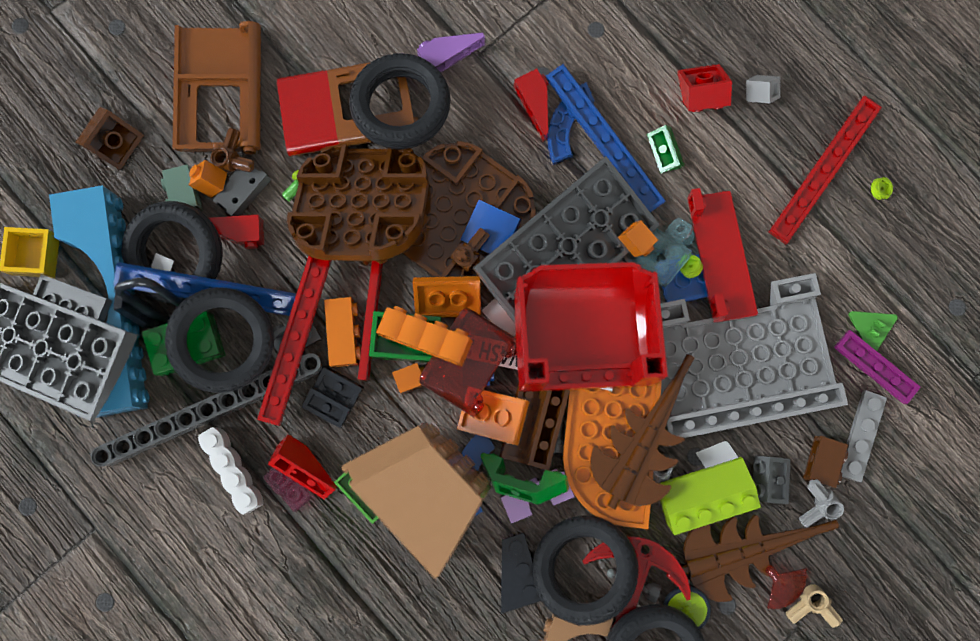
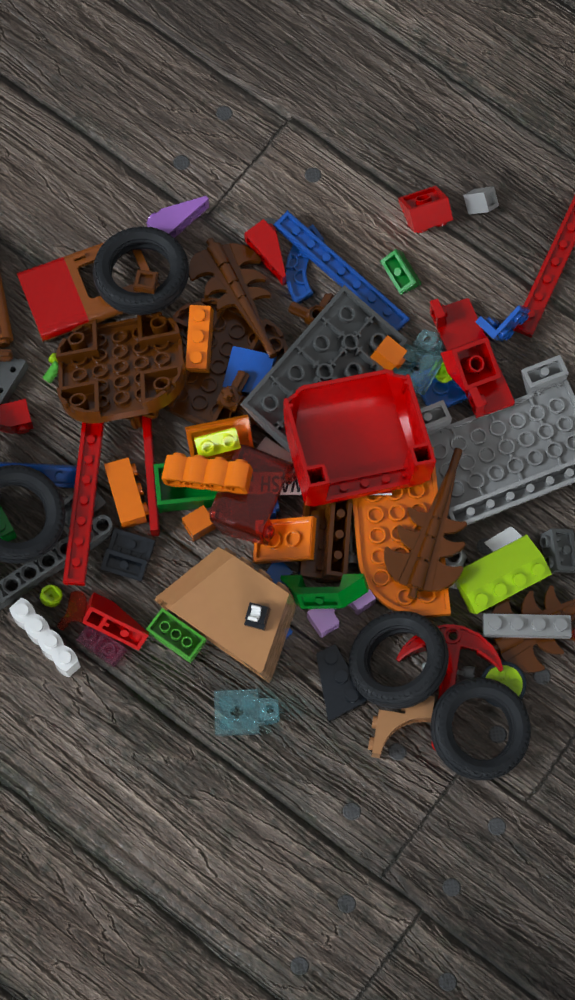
camera: 10 degrees left, 10 degrees down
(246, 425) = (51, 595): none -> lime tile
(267, 447) = (75, 610): none -> clear red hand
(400, 115) = (146, 281): none -> reddish brown tile
(426, 591) = (253, 710): none -> clear light blue plate
(442, 303) = (217, 442): none -> neon yellow bracket
(442, 519) = (257, 616): none -> black piece
(446, 185) = (199, 339): none -> orange brick
(487, 109) = (225, 265): none -> reddish brown animal
(570, 176) = (311, 313): none -> reddish brown axle
(722, 266) = (471, 364): none -> red slope
(724, 556) = (527, 626): none -> light grey plate
(750, 228) = (506, 329): none -> blue bracket

